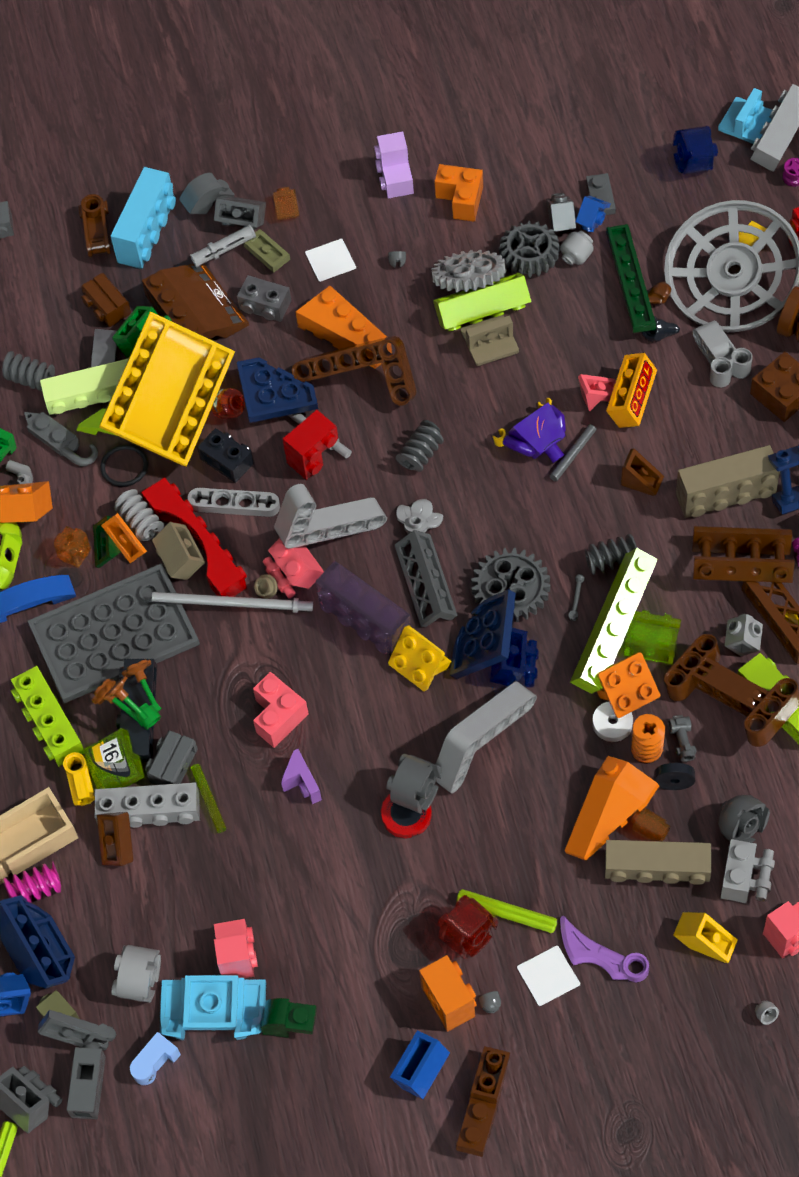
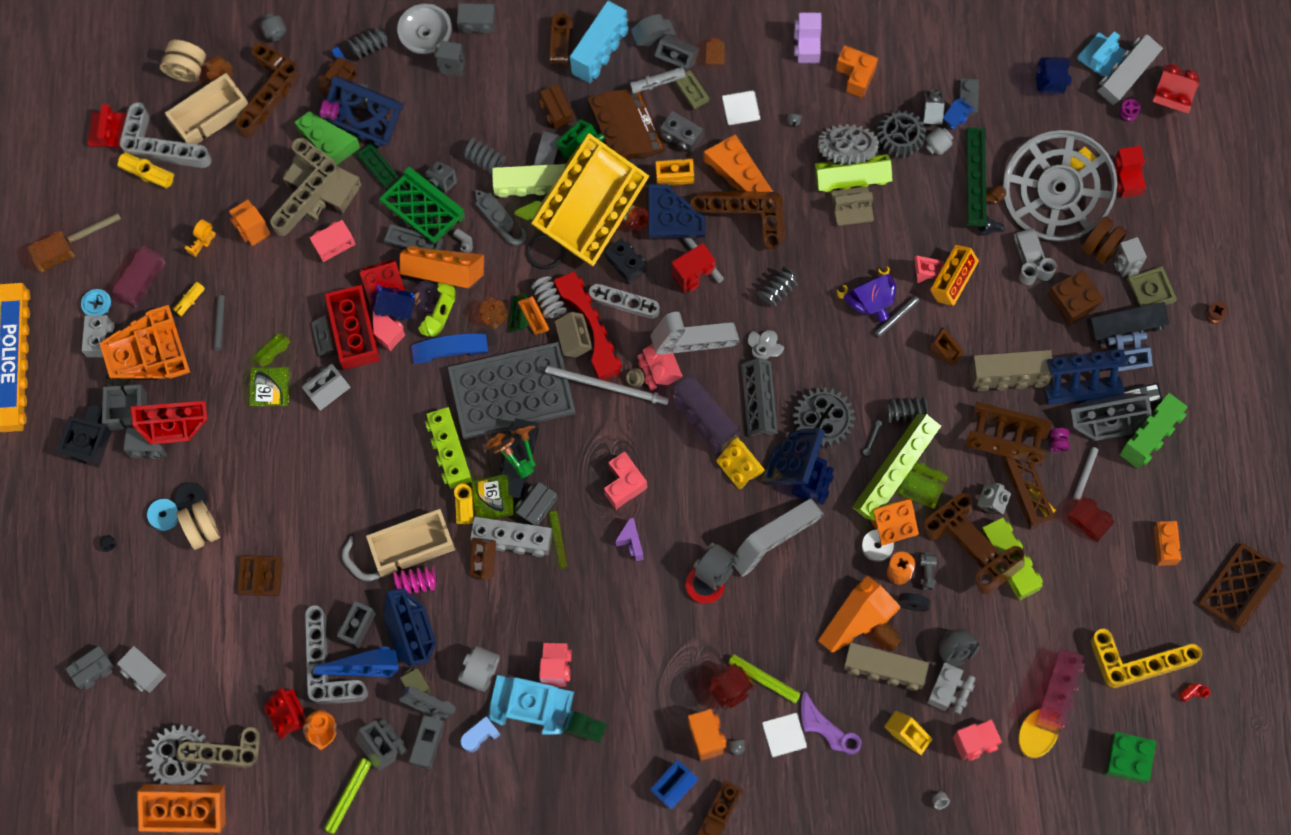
camera: 10 degrees right, 10 degrees up
(266, 342) = (675, 172): none -> light orange brick

